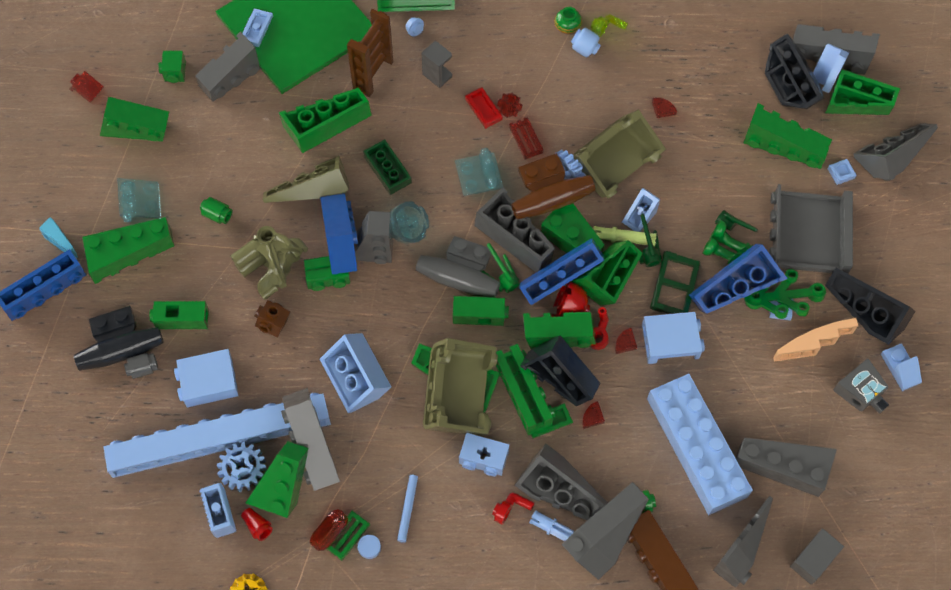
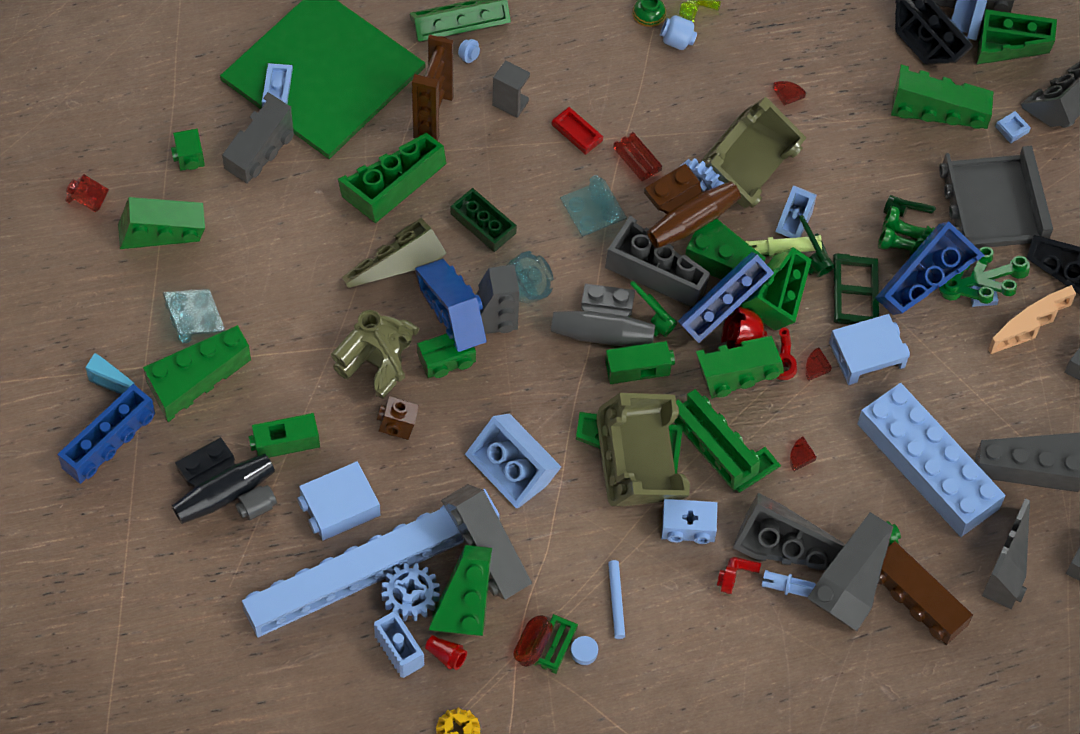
camera: 15 degrees left, 5 degrees down
(216, 210) = (292, 308): green brick -> none
(509, 105) = (608, 121): clear red gear -> none
(562, 369) = (755, 405): black wedge -> none

